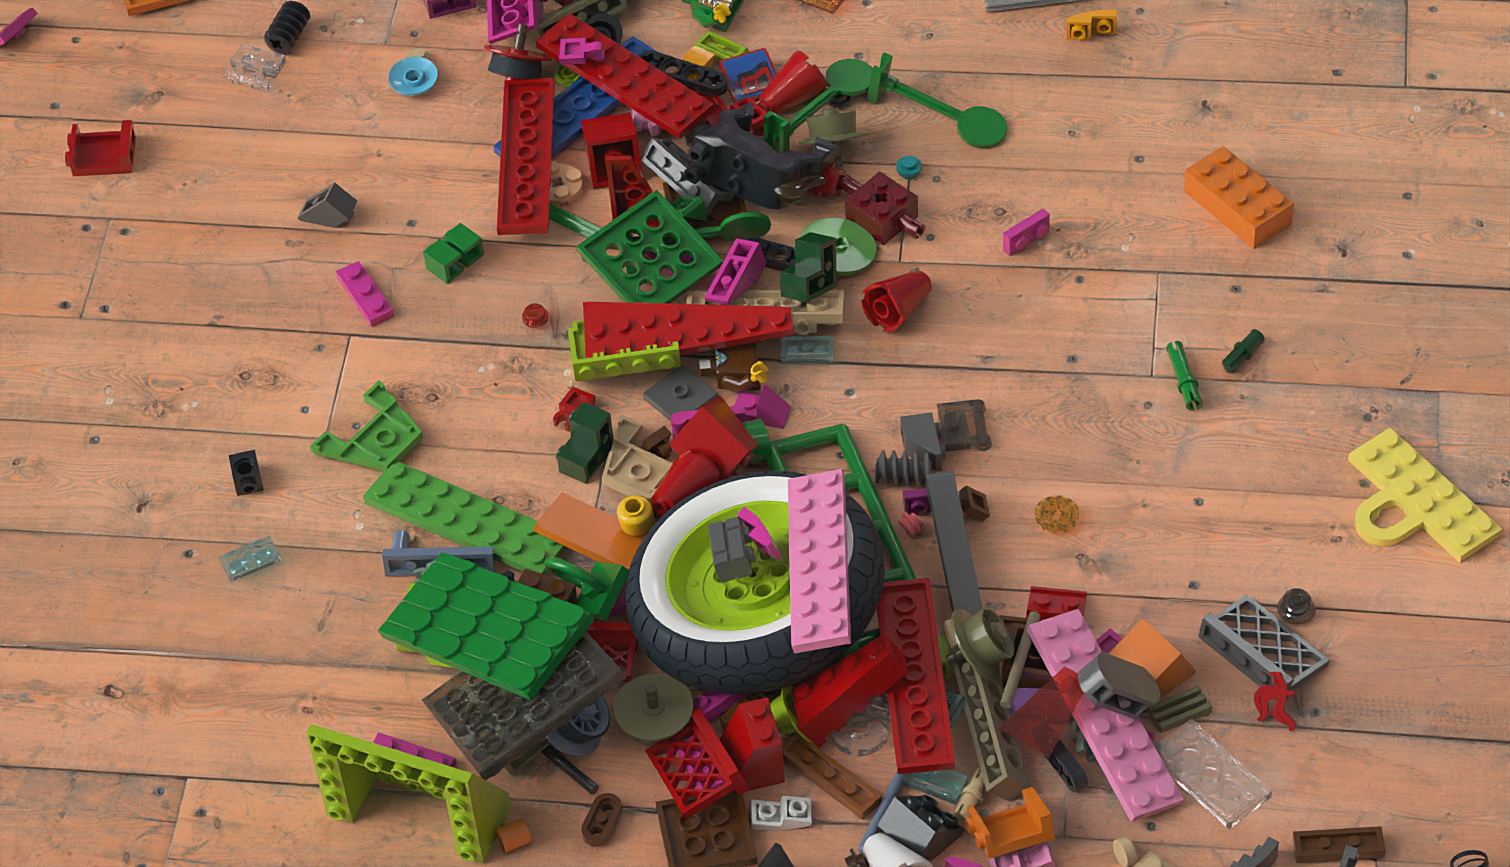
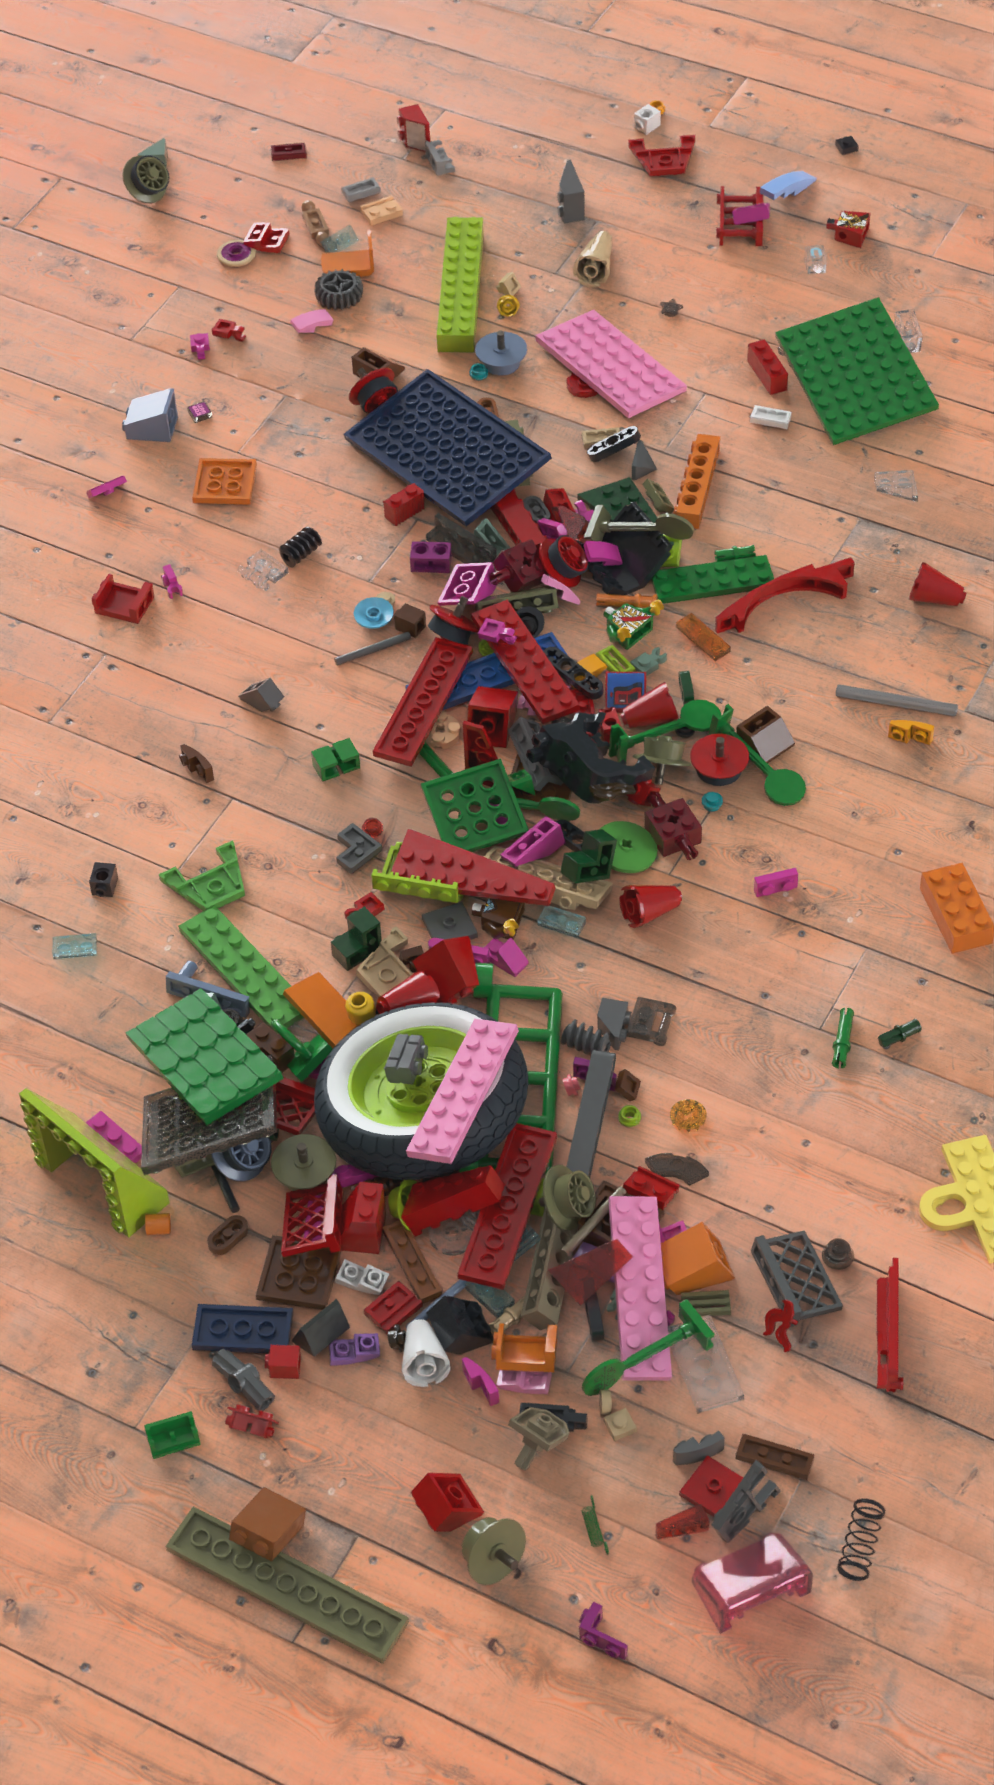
camera: 20 degrees right, 0 degrees up
(149, 110) = (169, 579): none -> dark pink plate
(287, 305) = (196, 762): none -> reddish brown slope
(365, 293) = (257, 770): dark pink plate -> none
(430, 117) = (372, 648): none -> dark grey bar
(460, 72) = (410, 620): none -> reddish brown brick
(533, 342) = (360, 848): none -> dark grey plate
(759, 534) = (432, 1055): dark pink slope -> none
(760, 37) = (649, 663): none -> sand green plate
(816, 51) = (685, 686): none -> dark green beam
(834, 833) = (393, 1307): none -> red plate
(897, 117) = (719, 759): none -> red piece
(935, 74) = (766, 734): none -> slope
(992, 530) = (629, 1111): none -> lime plate
(1067, 574) = (677, 1166): none -> clear smoke tile
(1118, 685) = (653, 1268): dark grey brick -> none
(1183, 735) = (610, 1371): none -> green piece
(1393, 664) = (888, 1329): none -> red piece

